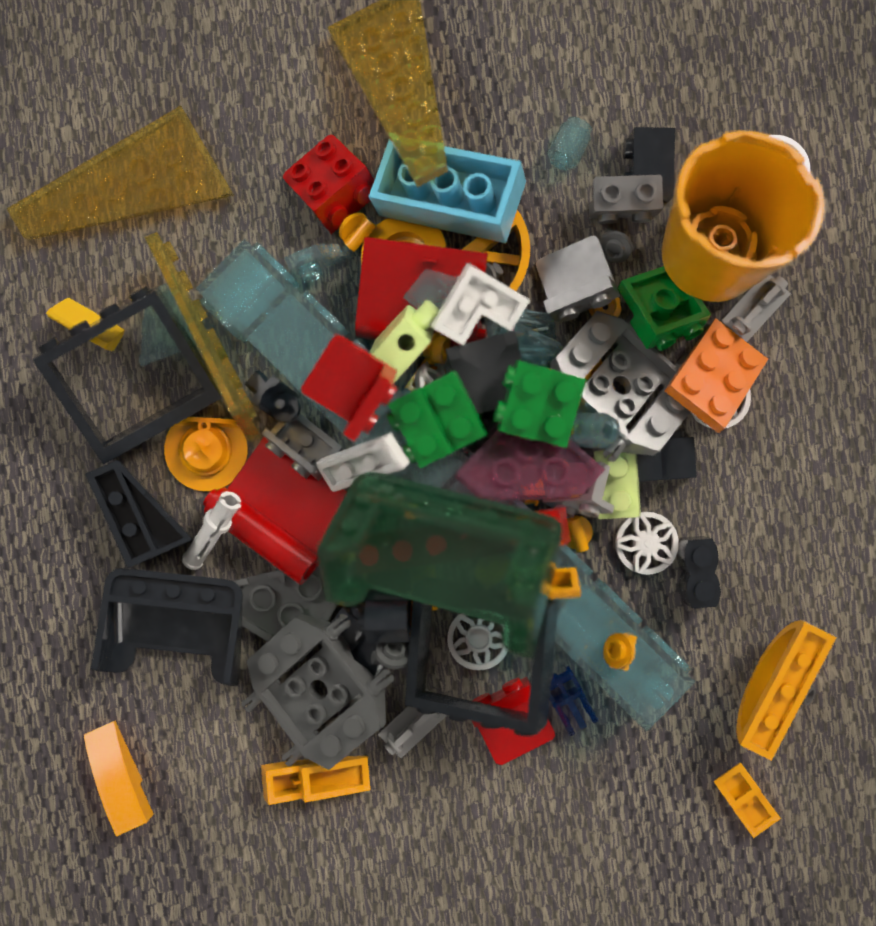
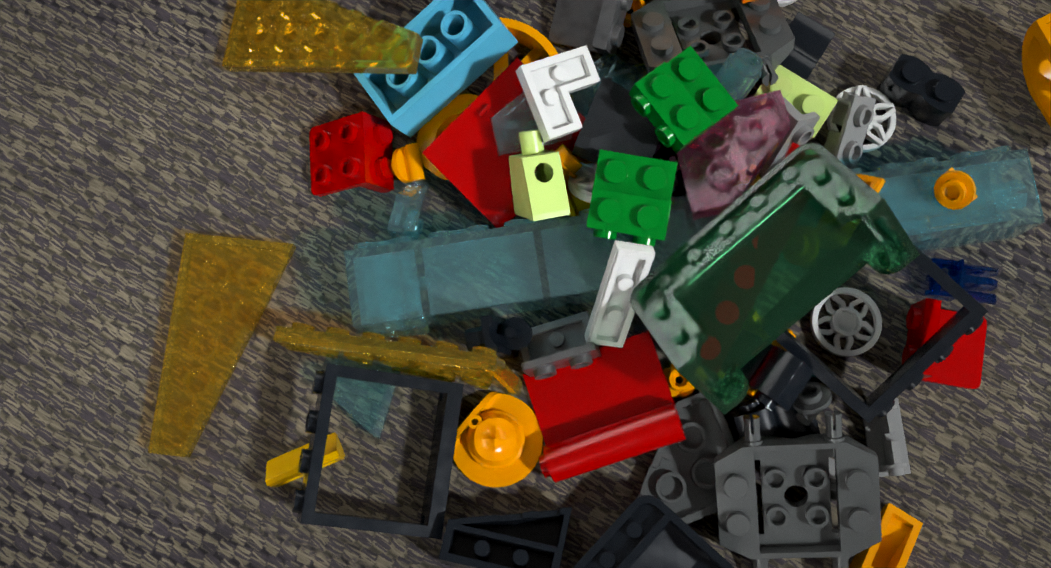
camera: 45 degrees left, 10 degrees down
(216, 522) = (573, 471): white pin -> none
(350, 384) = (546, 246): red bracket -> none
(612, 545) = (854, 116): none -> light grey hinge

